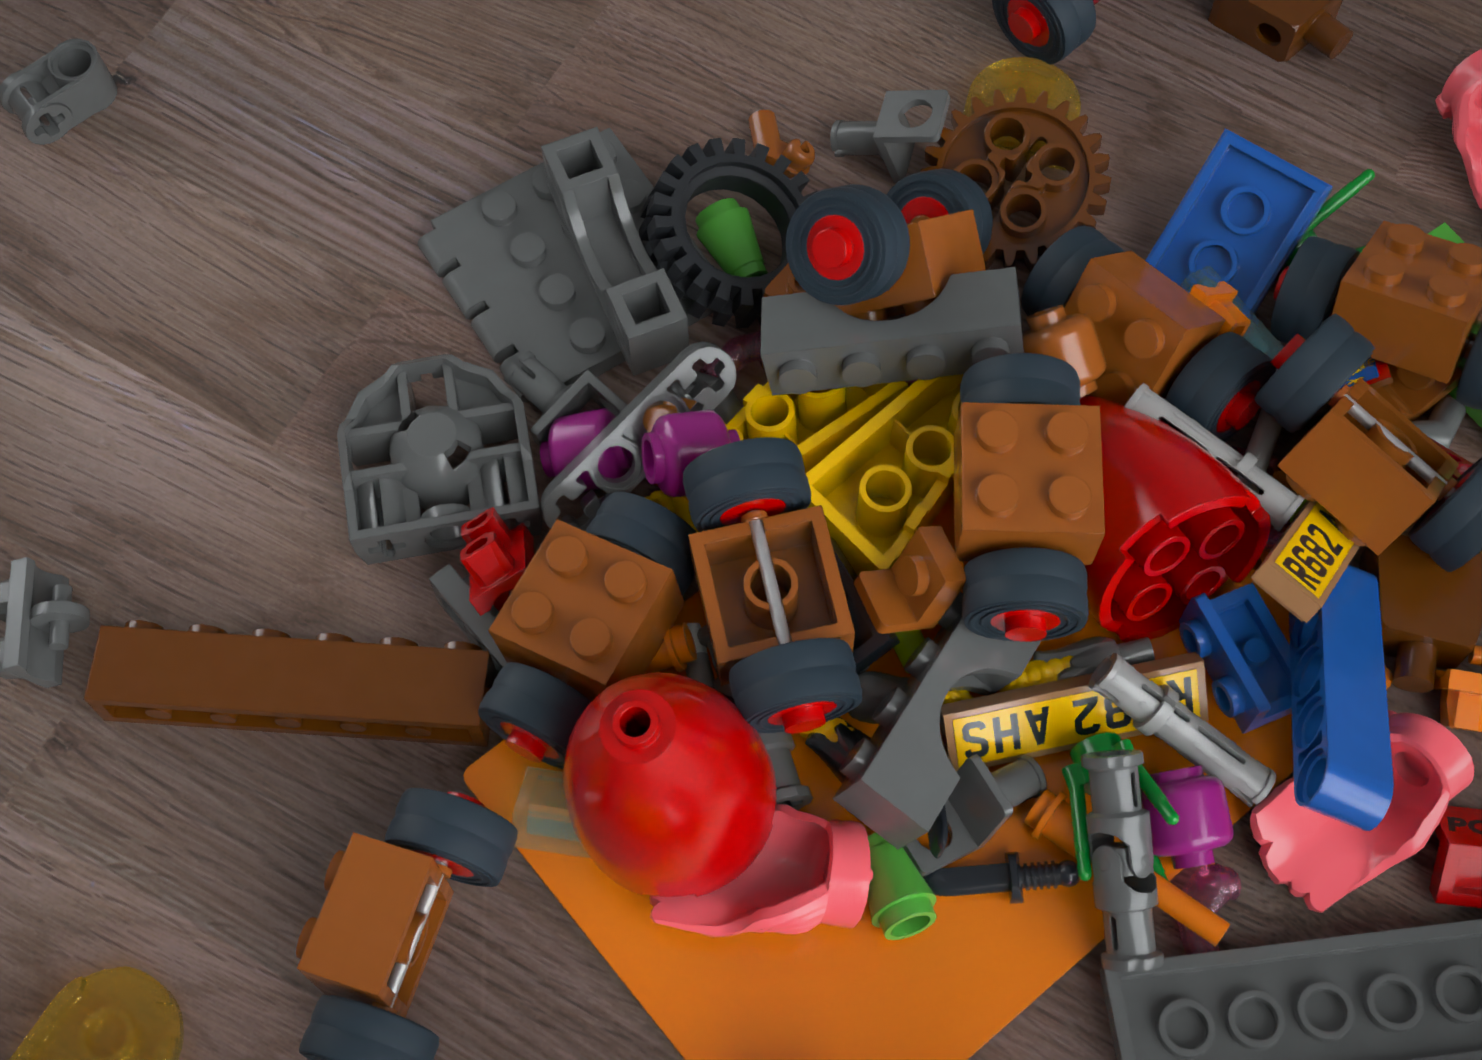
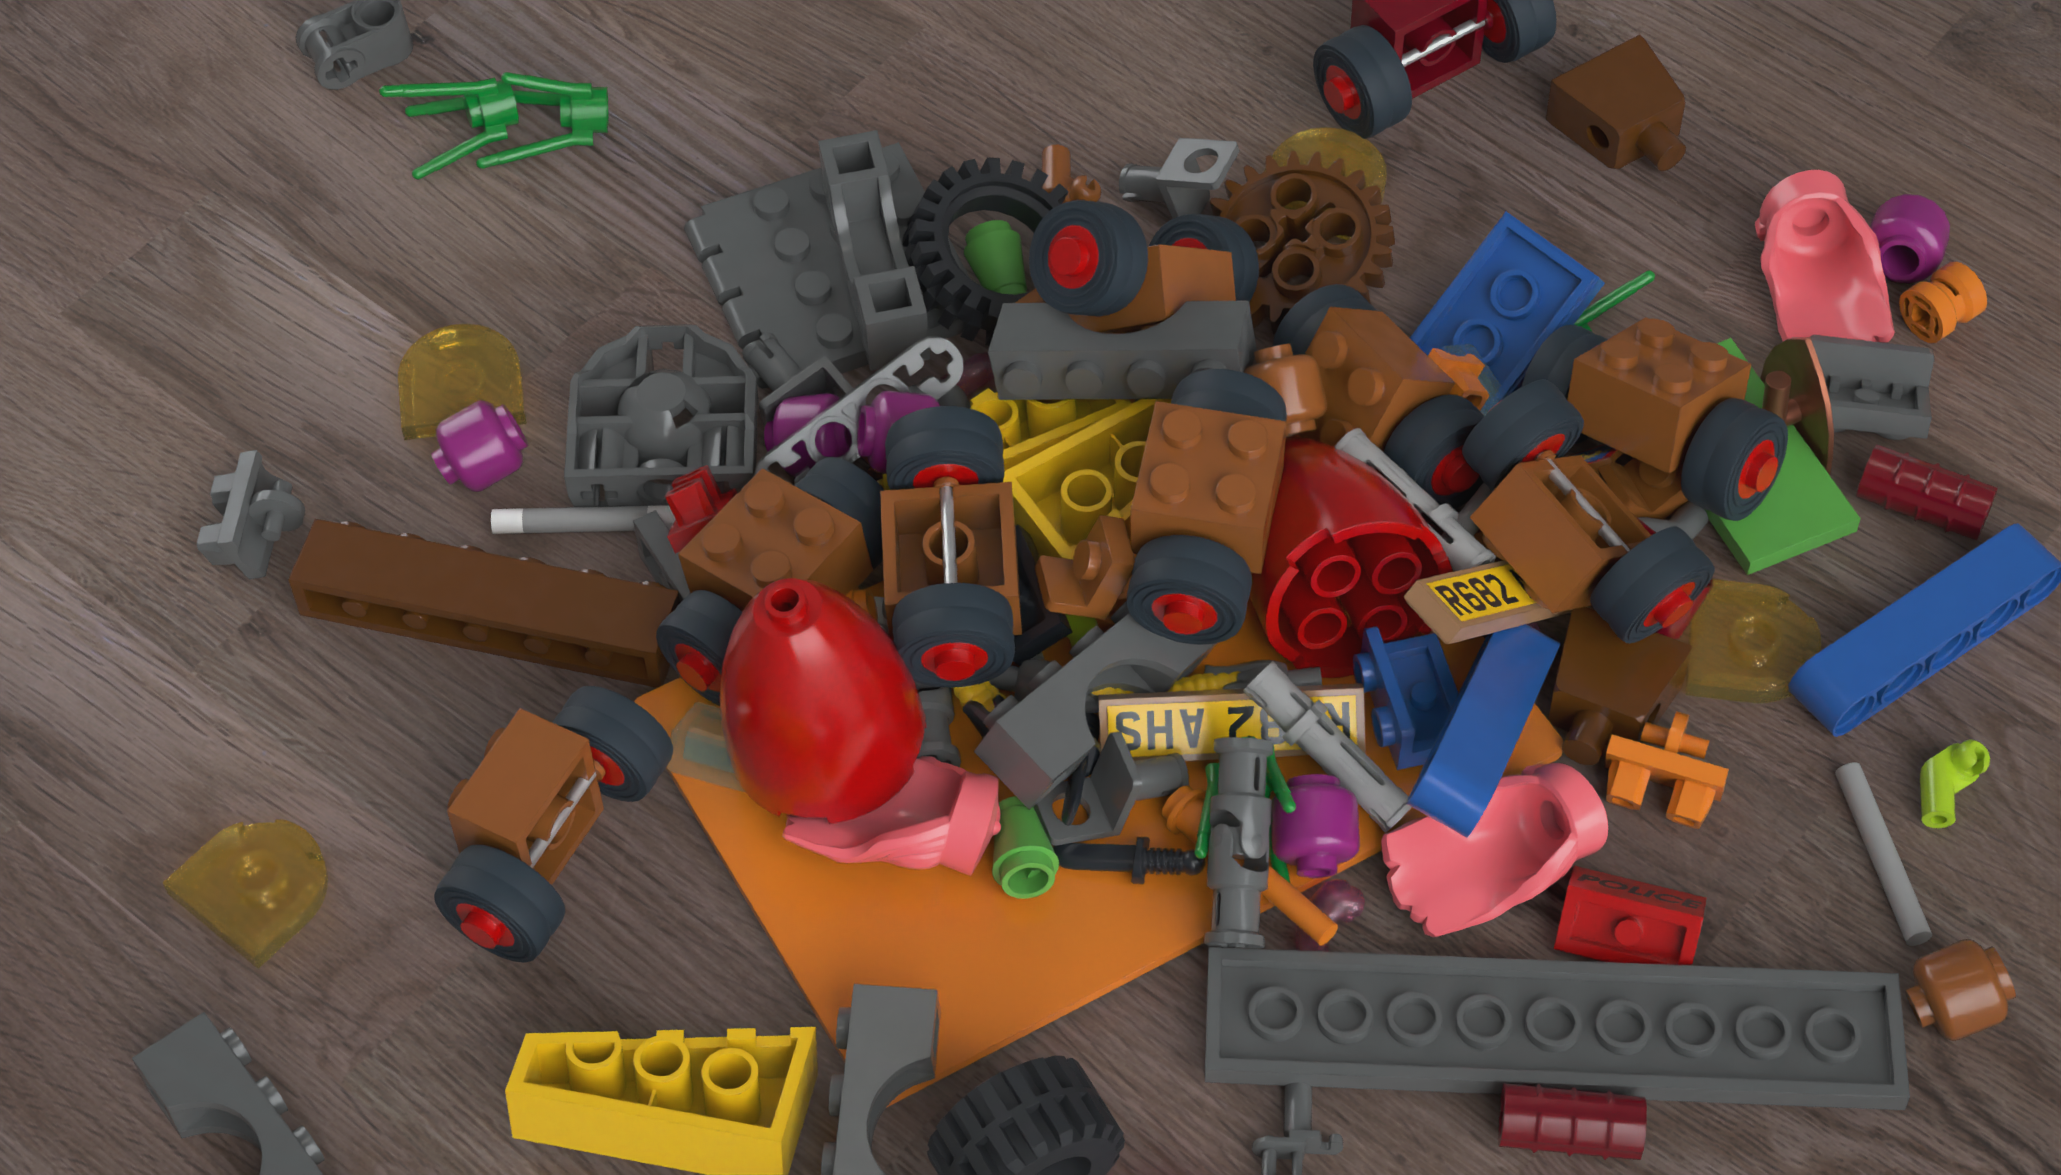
camera: 10 degrees right, 10 degrees down
(200, 143) = (486, 104): none -> green plant
(224, 442) = (453, 370): none -> clear yellow tile
(256, 512) = (479, 446): none -> magenta head
(293, 134) = (580, 108): none -> green plant
(370, 573) = (573, 519): none -> light grey bar

